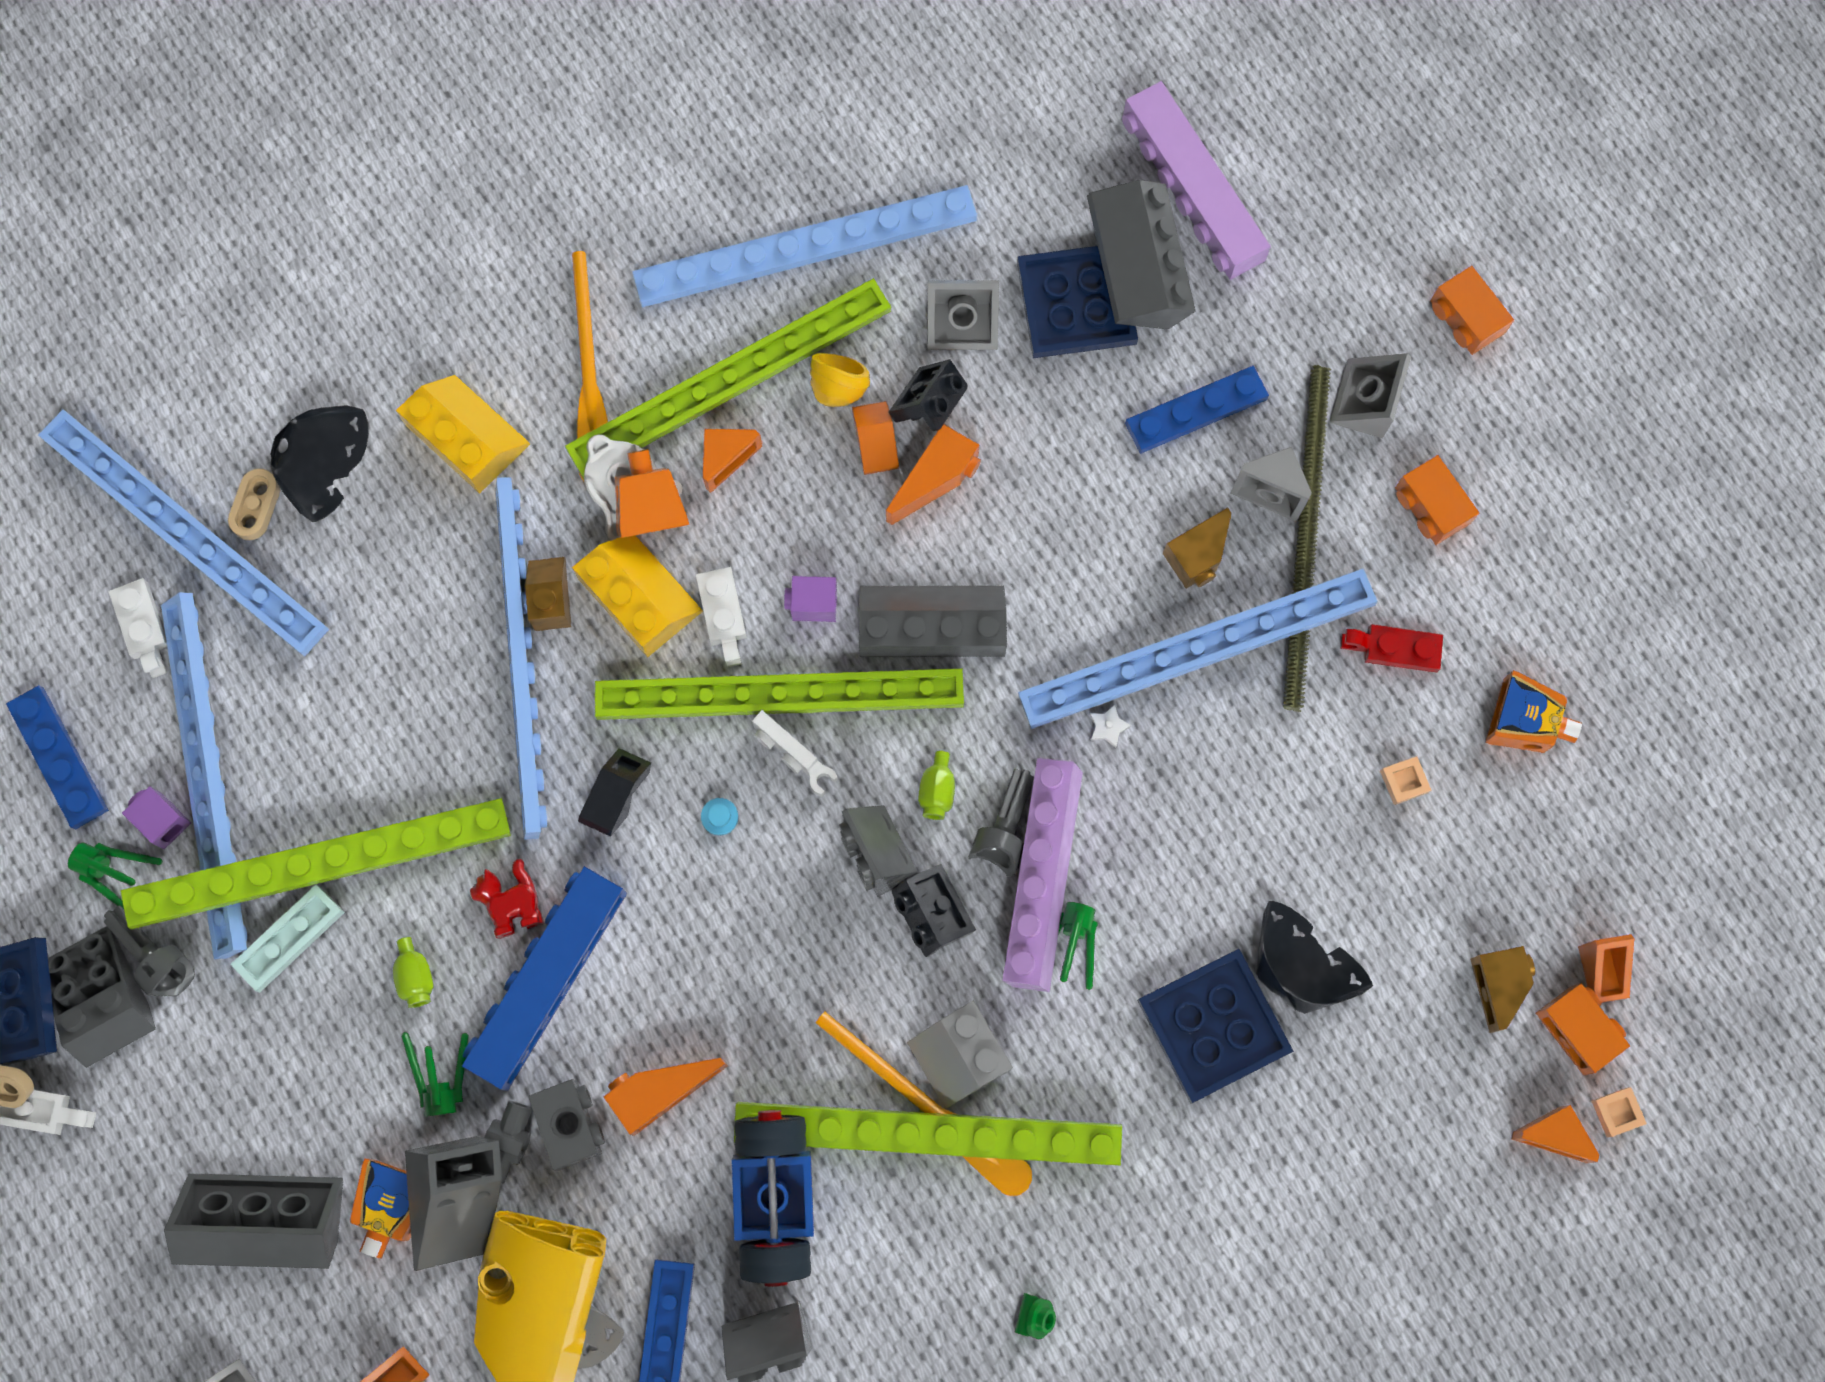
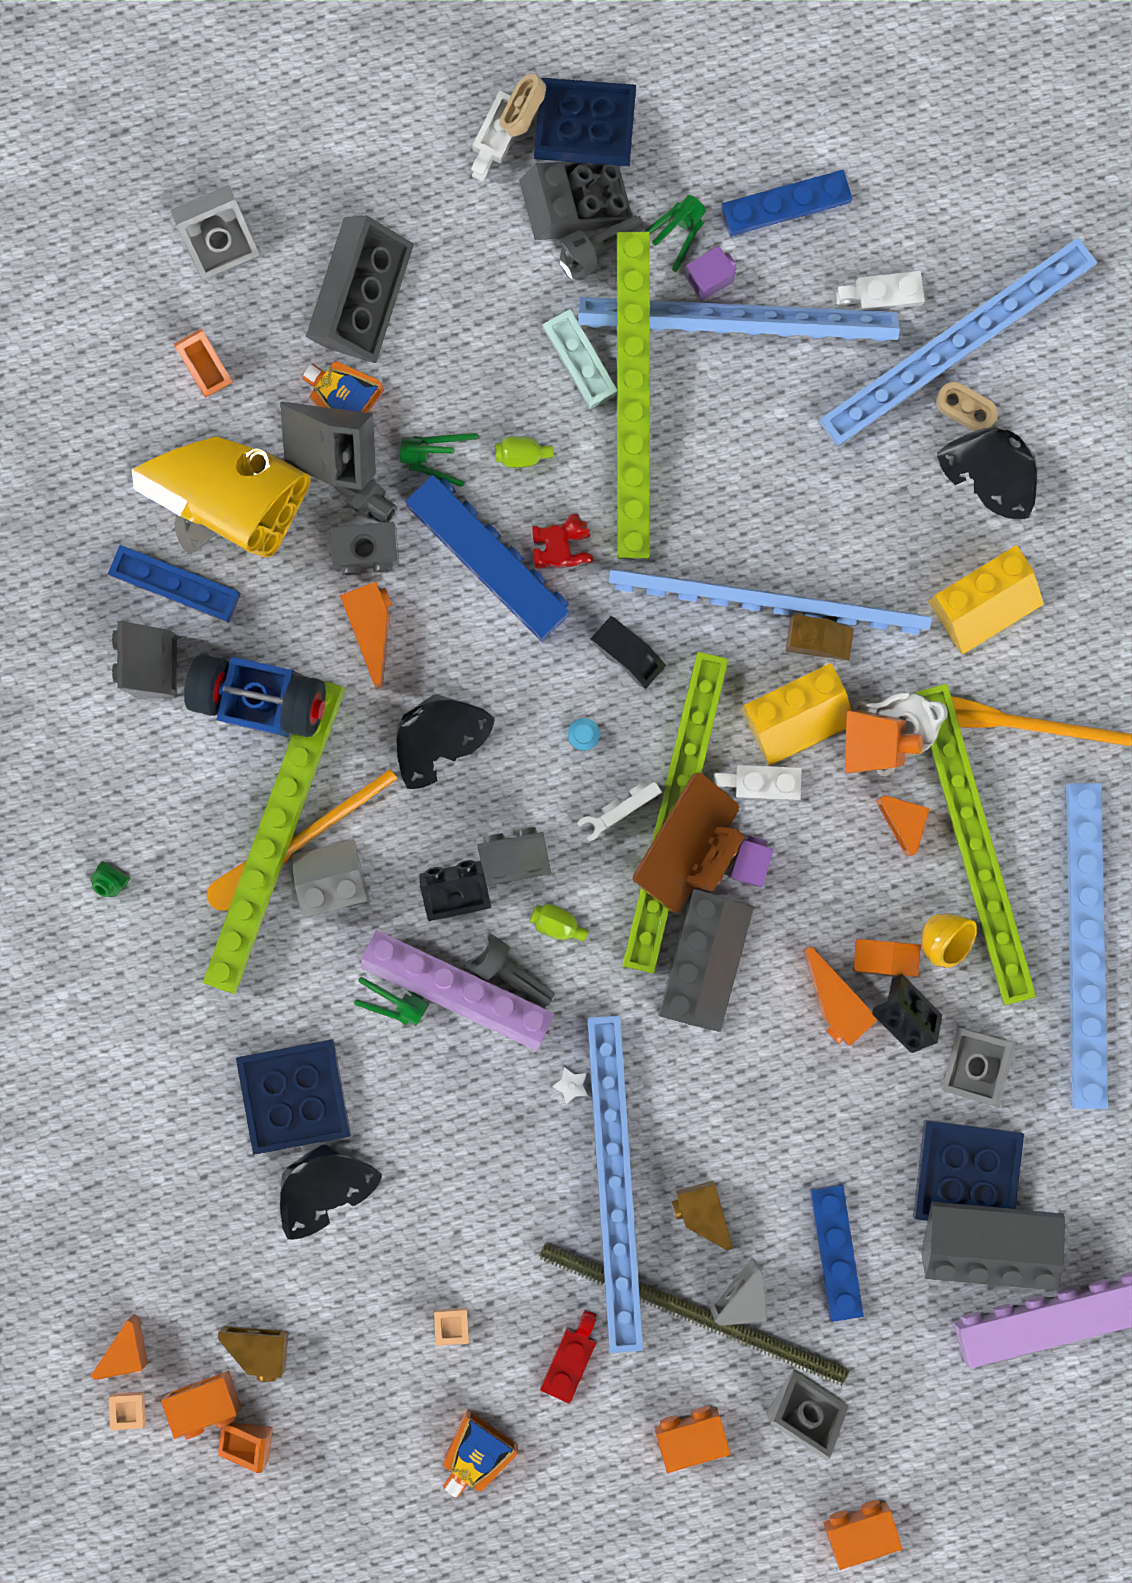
camera: 105 degrees right, 10 degrees up
(758, 980) = (437, 733): none -> black piece
(812, 661) = (691, 845): none -> dark orange bracket

